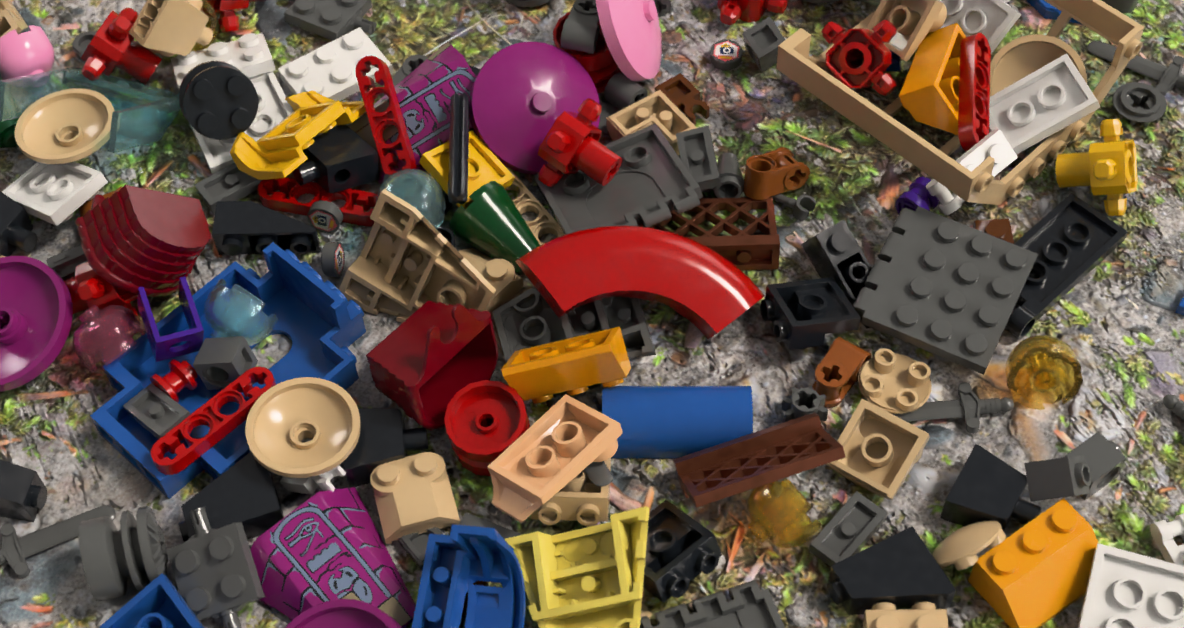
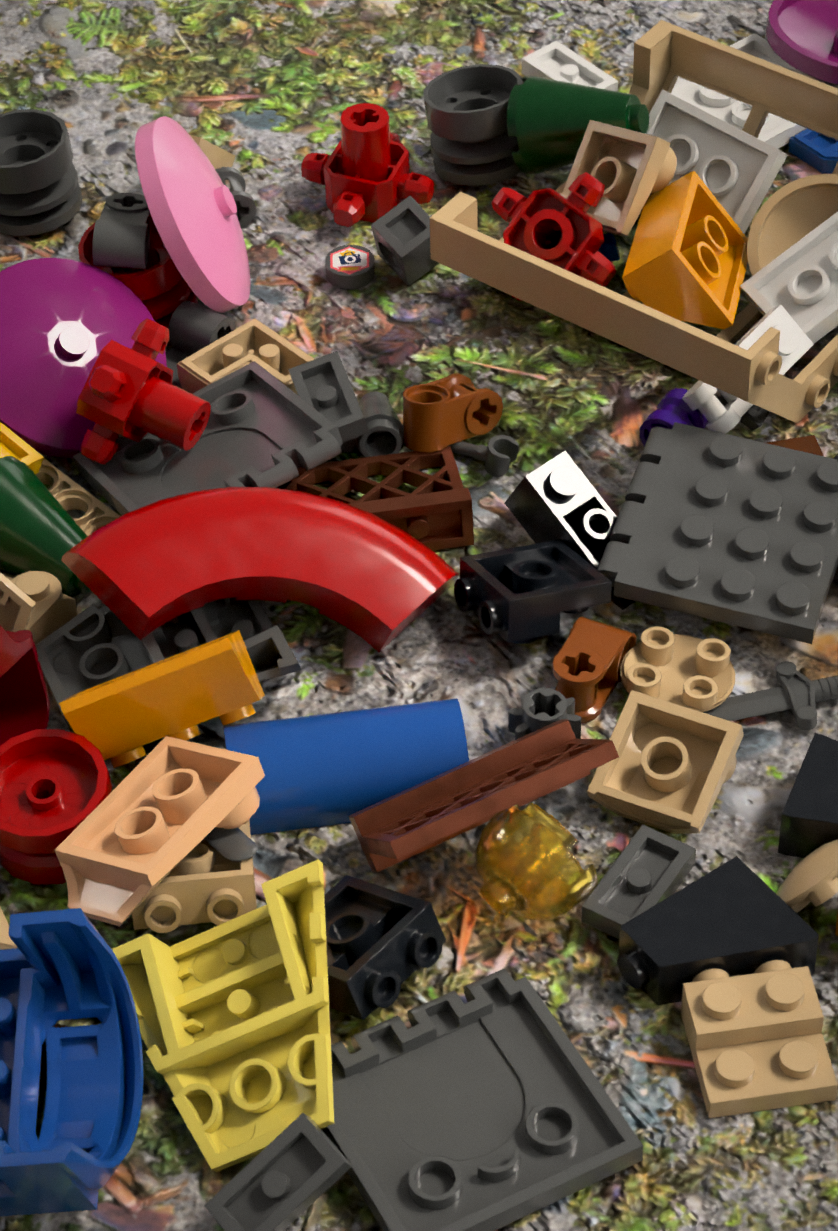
camera: 10 degrees left, 10 degrees down
(684, 97) = (295, 325): reddish brown plate -> none
(974, 90) = (733, 260): red beam -> none

